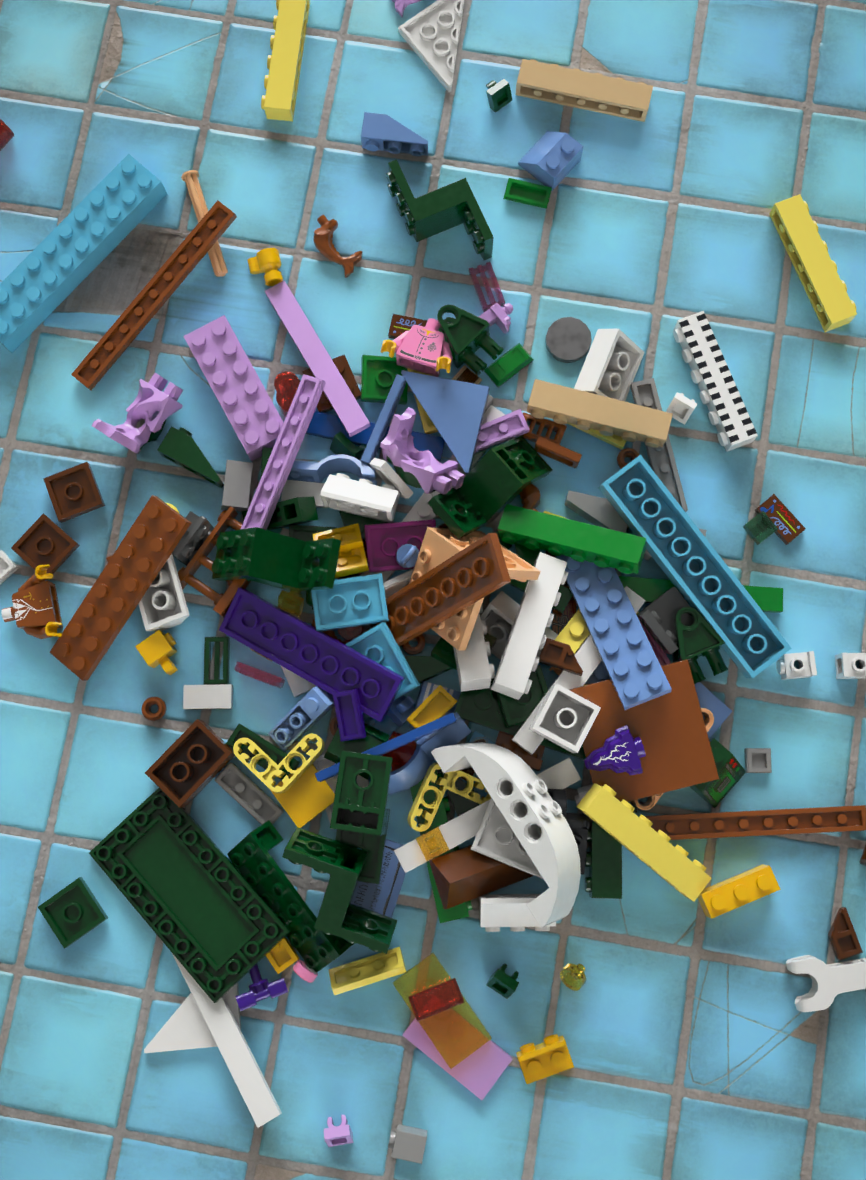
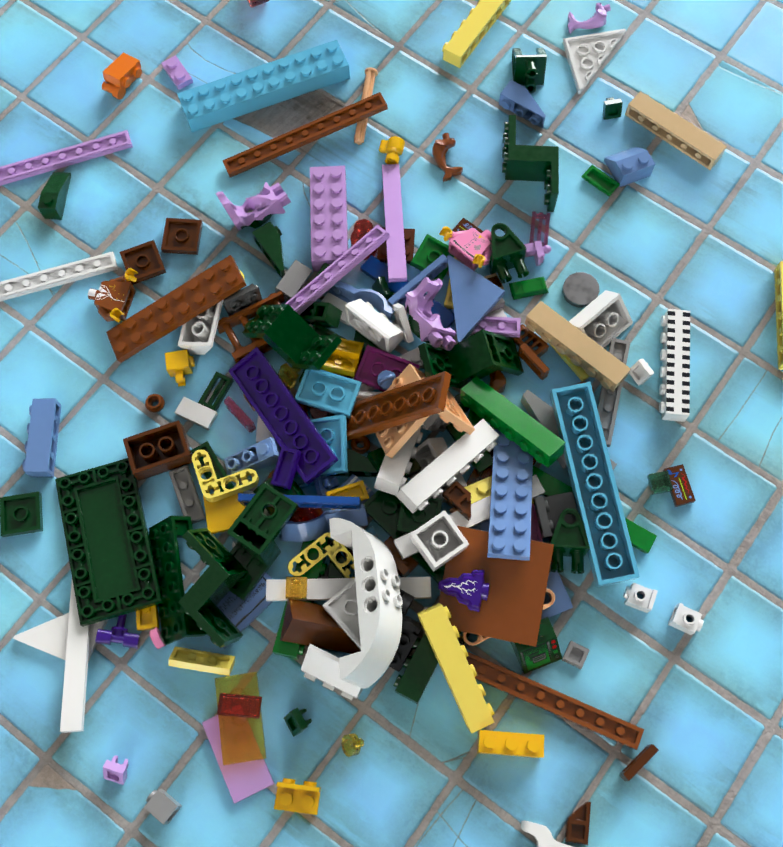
camera: 25 degrees right, 10 degrees down
(47, 813) = (42, 437): none -> medium blue brick
(379, 88) = (529, 69): none -> dark green piece

